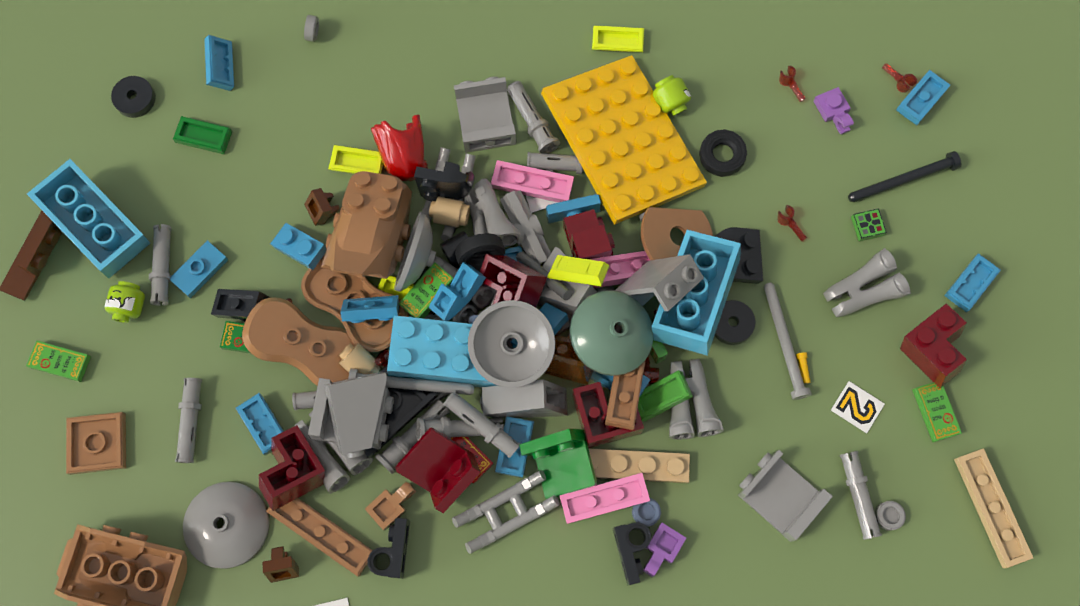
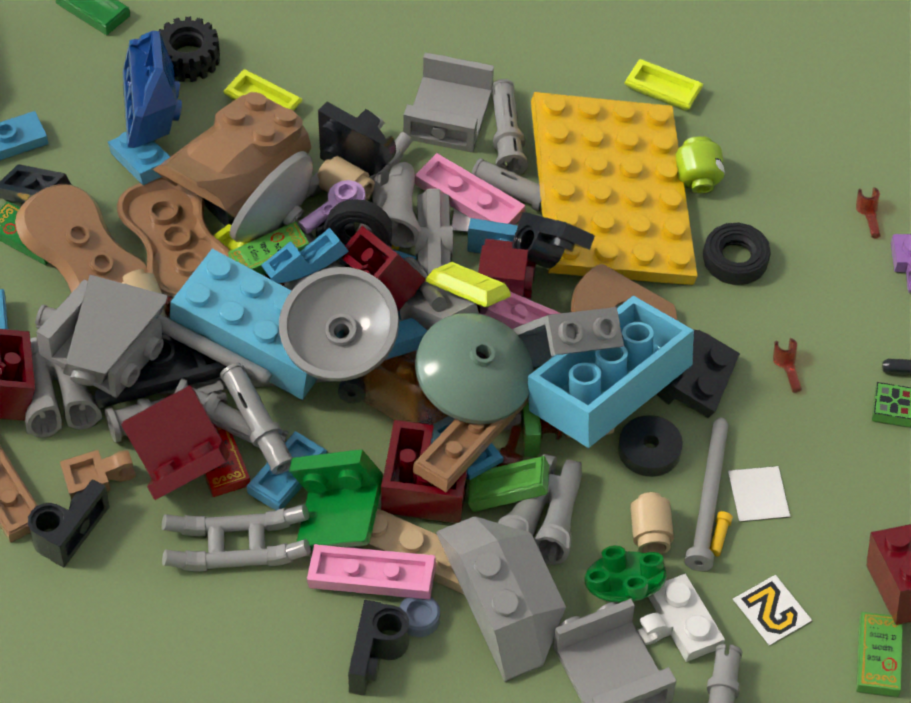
camera: 20 degrees right, 20 degrees down
(277, 135) = (191, 34): none -> black tyre
(281, 197) = (149, 90): none -> blue wedge
(319, 207) = (191, 124): reddish brown tile -> none
(363, 309) = (174, 240): dark azure plate -> none
(401, 149) = (320, 83): red hair -> none
(458, 230) = (338, 193): none -> lavender plate
(528, 401) = (331, 417): light grey slope -> none
(608, 207) = (548, 239): none -> black plate
(665, 546) = (419, 658): medium lavender plate -> none
(696, 475) = (506, 591): none -> light grey wedge
(761, 382) = (652, 523): none -> tan brick
(763, 428) = (625, 575): none -> green dish
(809, 441) = (683, 617): none -> white plate
(813, 326) = (758, 493): none -> white sticker
(877, 267) = (859, 467): light grey piece -> none

